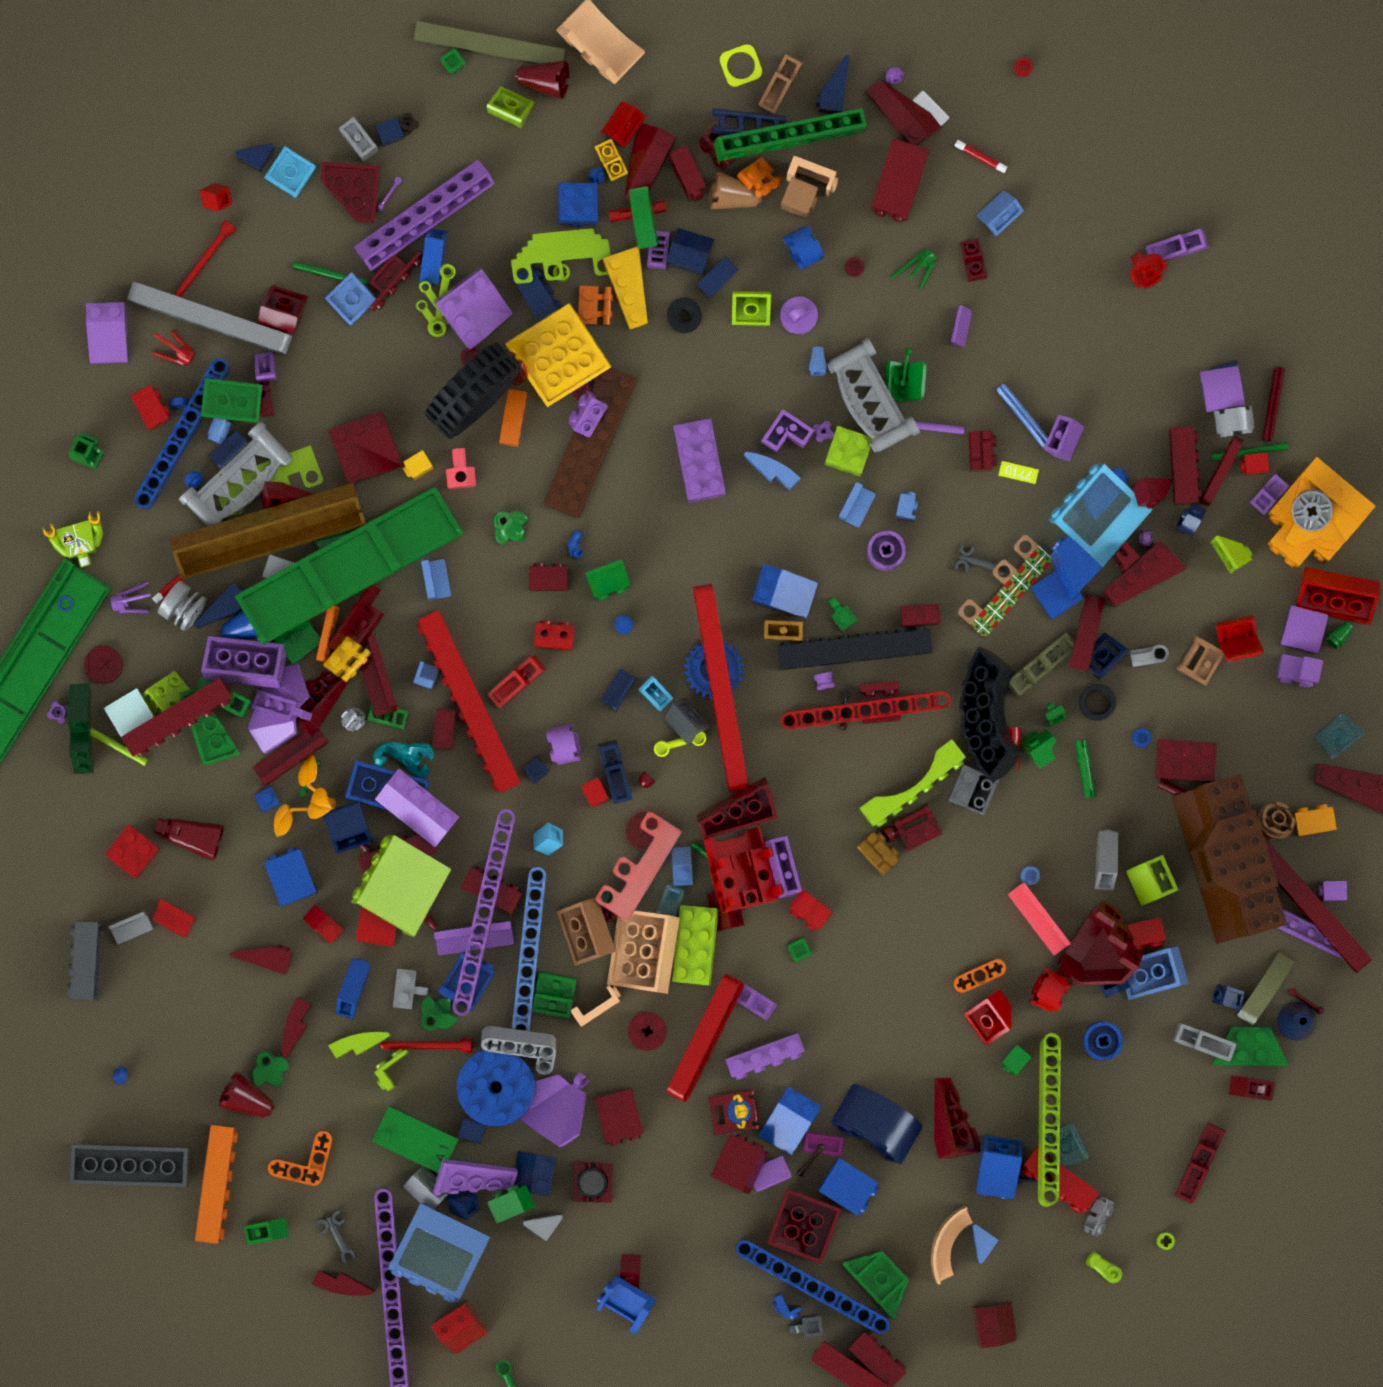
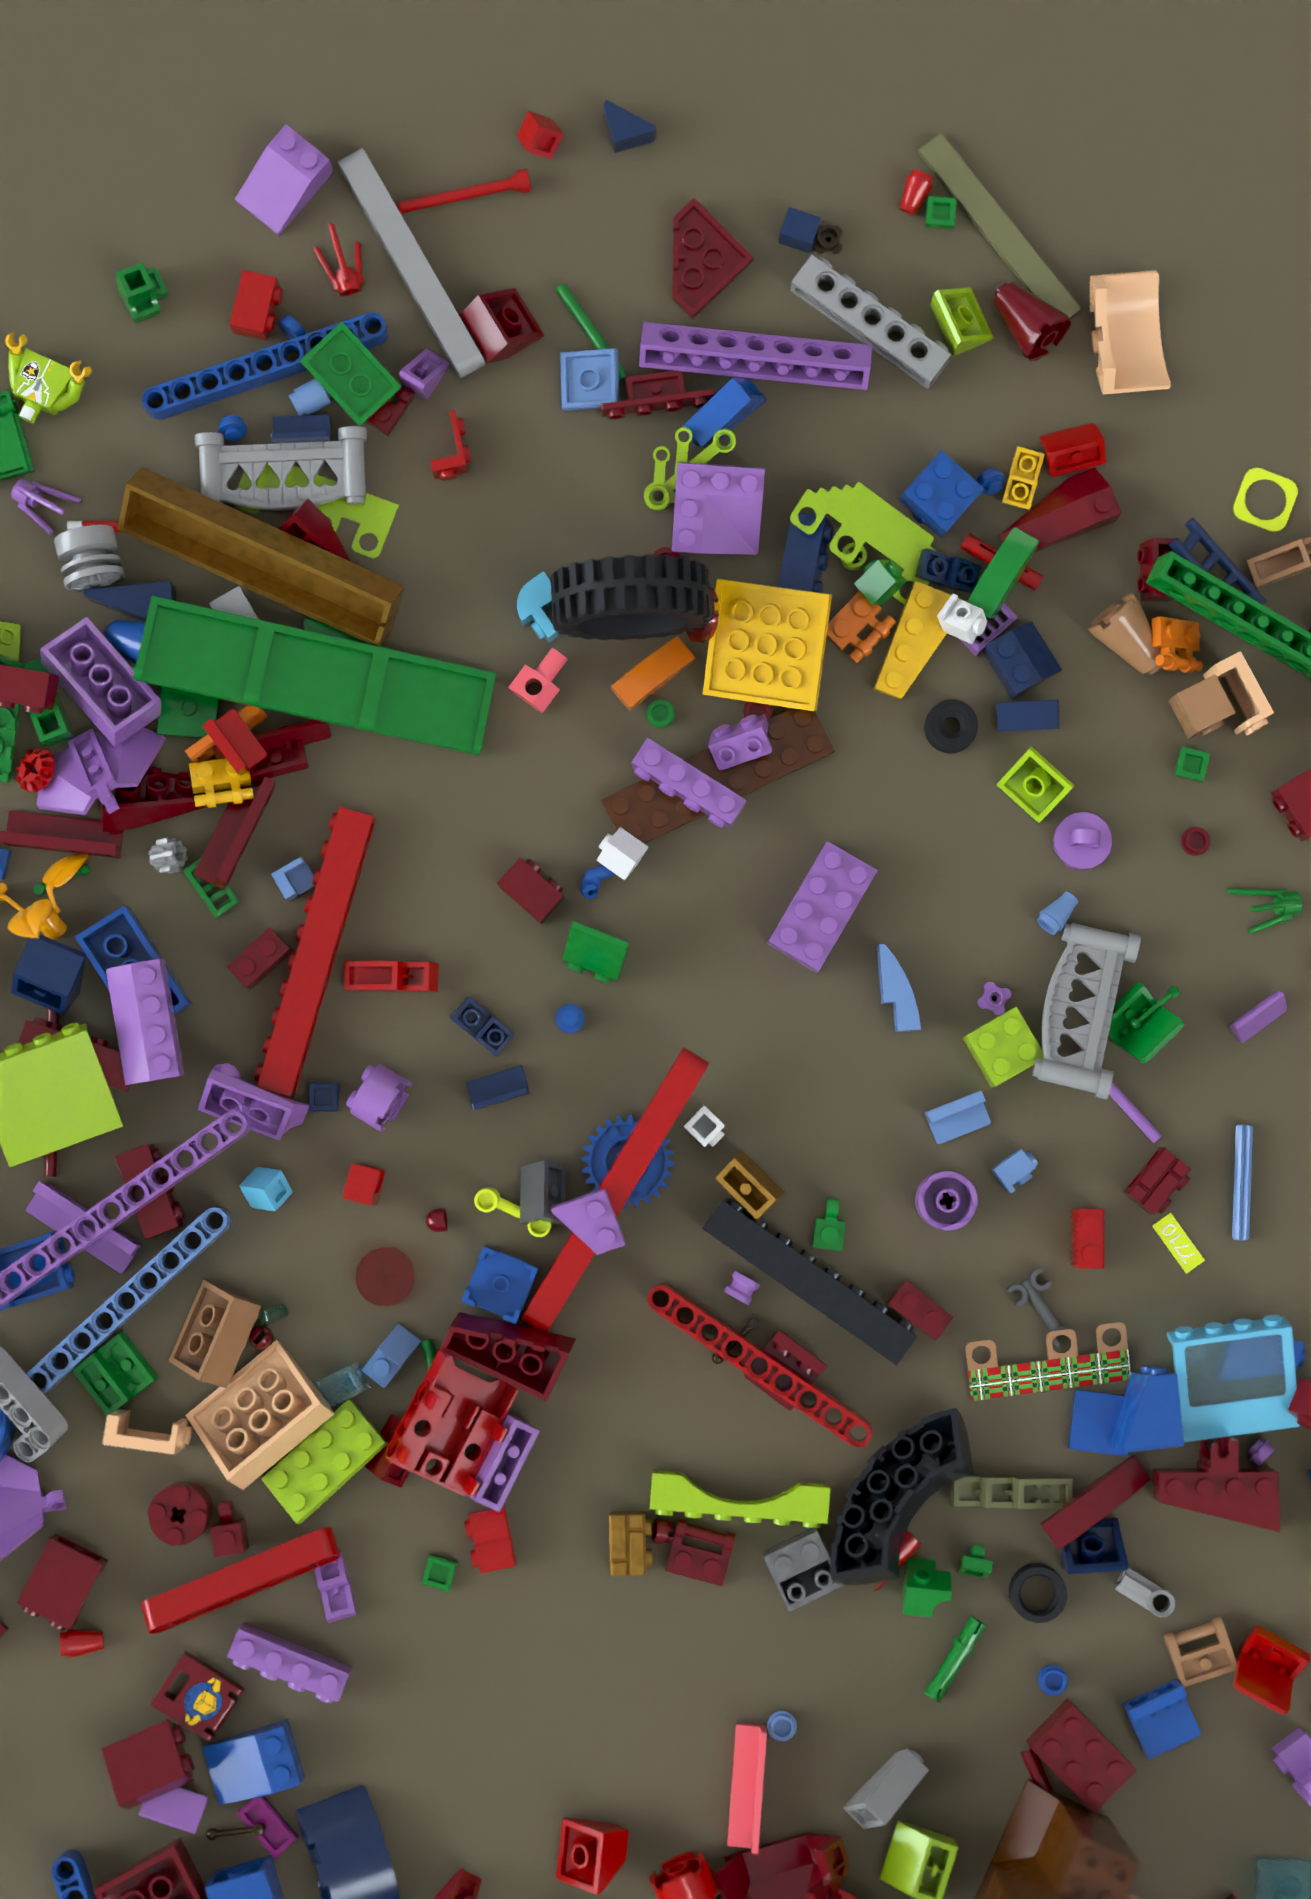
camera: 40 degrees right, 0 degrees up
(253, 728) = (45, 766): none -> red gear
(290, 172) = (648, 180): medium azure tile -> none
(320, 404) = (449, 467): none -> red bracket
(338, 632) = (235, 741): none -> red panel
(358, 139) = (756, 207): light grey panel -> none
(365, 448) = (455, 561): dark red slope -> none
(398, 181) = (760, 295): medium lavender hinge -> none
(407, 754) = (193, 950): teal animal -> none
(417, 465) = (496, 632): yellow brick -> none
(422, 431) = (533, 602): none -> medium azure brick
(430, 61) = (915, 191): none -> red cone
(436, 579) = (403, 779): medium blue panel -> none
(457, 154) = (852, 320): none -> light grey brick
(512, 528) = (540, 796): green plate -> none
(516, 798) = (267, 1111): none -> medium lavender slope
(534, 435) = (660, 713): none -> green tile
(554, 636) = (478, 962): red brick -> none
(576, 520) = (621, 852): none -> white brick
(580, 457) = (688, 783): none -> medium lavender brick
(583, 666) = (482, 1026): none -> dark blue slope
(586, 273) = (880, 581): none -> brick
(615, 239) = (948, 571): none -> dark blue slope
(615, 771) = (410, 1178): dark blue slope -> none
(642, 874) = (336, 1325): piece -> none
(643, 258) = (962, 619): none -> white brick
(654, 1137) = (80, 1642): none -> red cone
(655, 693) = (536, 1130): medium azure slope -> none
(680, 1020) = (229, 1535): none -> dark red brick
(687, 173) = (1097, 567): dark red window -> none
(704, 783) = (500, 1284): none -> blue panel
(722, 710) = (592, 1220): none -> medium lavender wing
(737, 618) = (705, 1127): none -> white brick
(784, 591) = (787, 1143): slope -> none
(786, 427) = (955, 956): medium lavender brick -> none
(803, 247) = (1158, 767): blue brick -> none
(820, 229) = (1191, 764): none -> green plate
(971, 508) = (1088, 1238): none -> red brick
(994, 975) = (596, 1792): orange beam -> none
(1063, 437) = (1268, 1251): medium lavender brick -> none
(1210, 709) = (1162, 1718): none -> blue bracket

